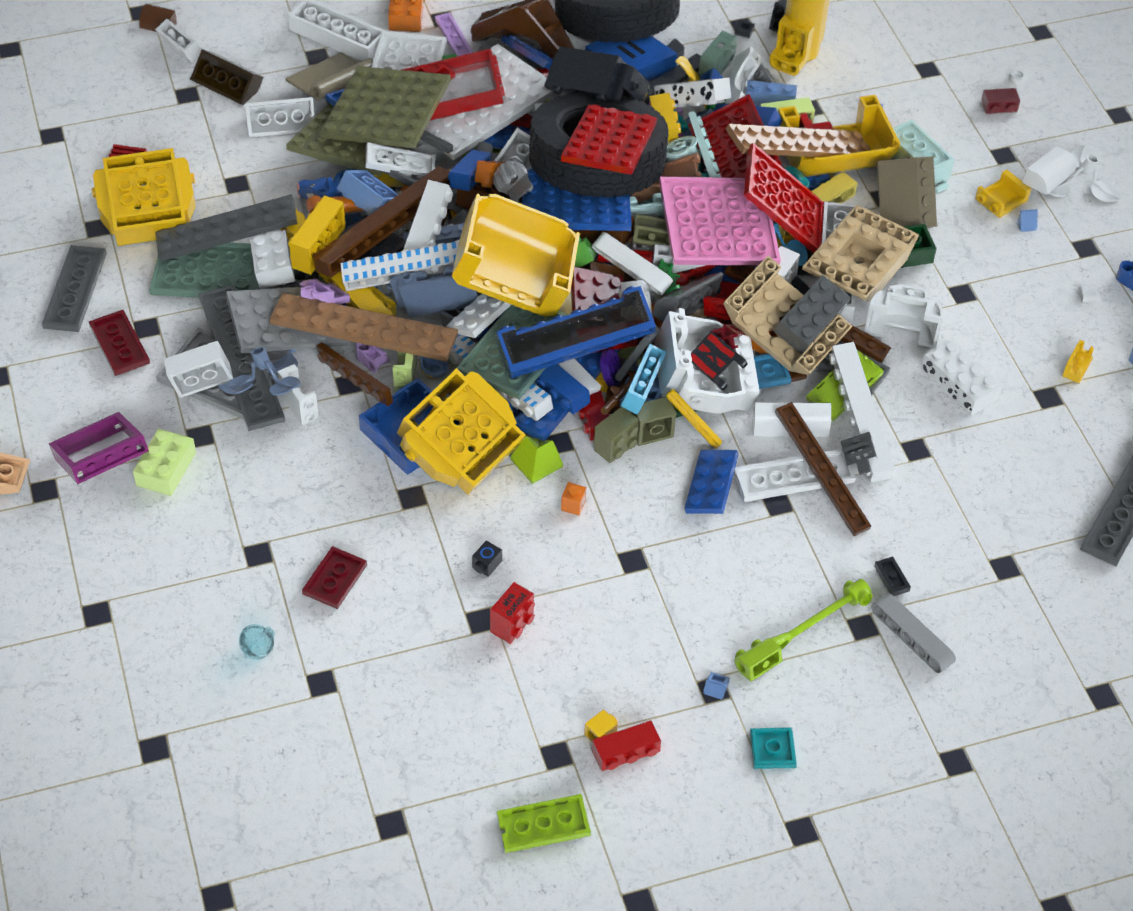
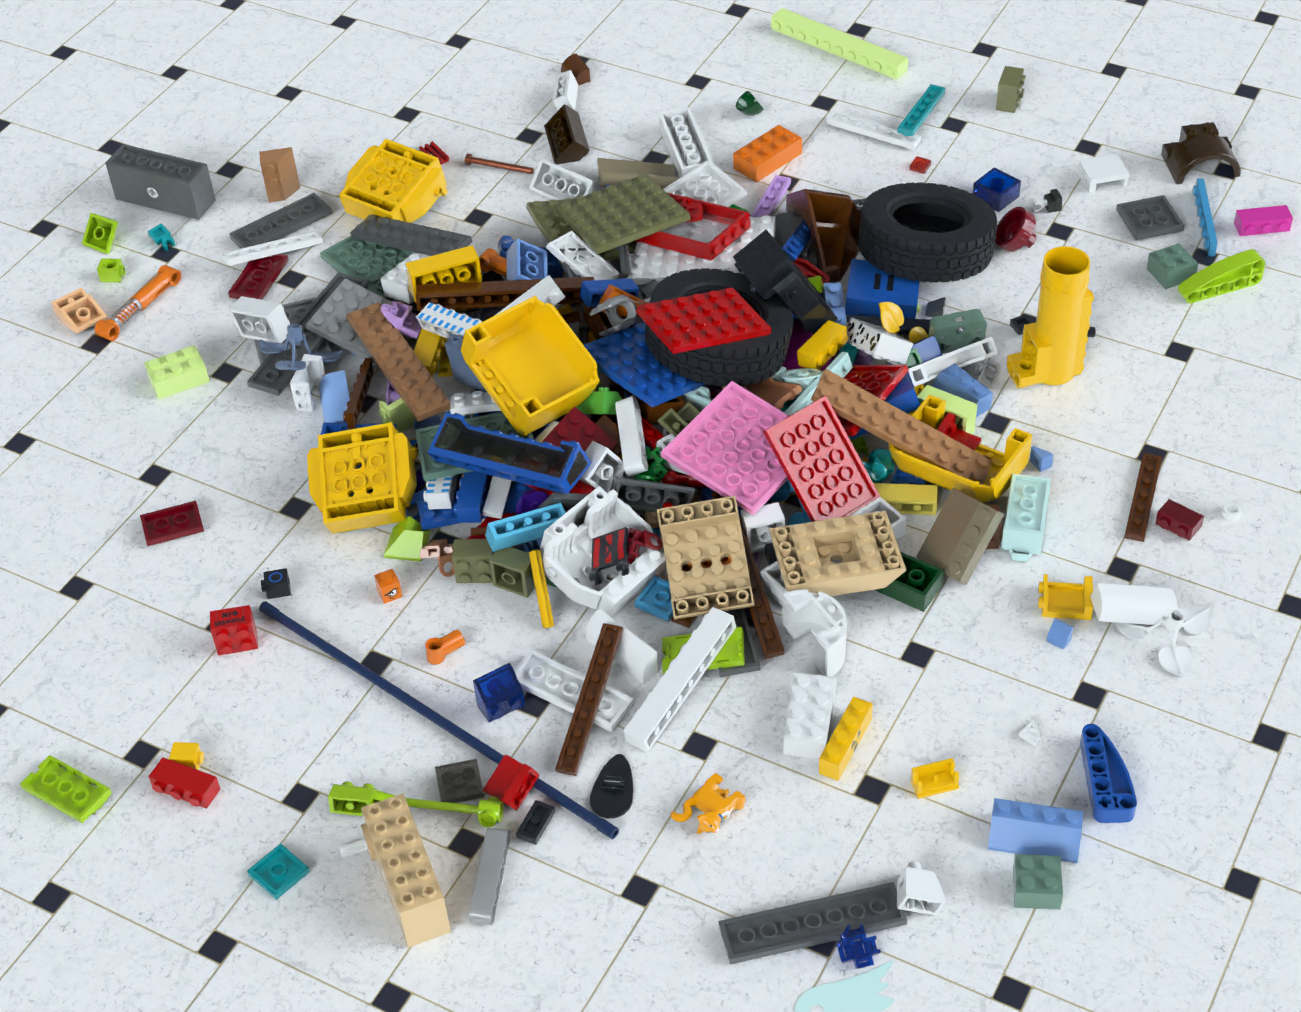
camera: 50 degrees right, 5 degrees down
(26, 246) = (279, 173): none -> medium nougat slope
(40, 430) = (139, 301): none -> orange piece
(101, 460) = (117, 336): magenta window -> none
(103, 311) = (272, 248): none -> white tile
(167, 141) = (469, 159): none -> copper bar
(256, 641) = (66, 527): clear light blue cap -> none
(336, 396) = (334, 396): none -> light blue brick
(575, 446) = (442, 551): none -> nougat piece
(671, 511) = (439, 647): none -> orange piece
(711, 482) = (501, 647): blue plate -> none
(716, 685) = (304, 794): medium blue slope -> none
(760, 512) = (498, 693): none -> clear blue slope
(809, 590) = (459, 781): none -> clear smoke plate
(812, 314) = (726, 569): dark grey brick -> none
(846, 562) = (511, 782): none -> red bracket
(858, 450) = (634, 704): dark grey piece -> none
(871, 669) = (405, 868): none -> tan piece
(904, 518) = (613, 789): none -> black shield
(931, 545) = (274, 613): none -> dark blue piece
(959, 100) = (1143, 497): none -> reddish brown tile
(981, 477) = (713, 802): none -> light orange animal
(993, 360) = (845, 738): none -> yellow brick

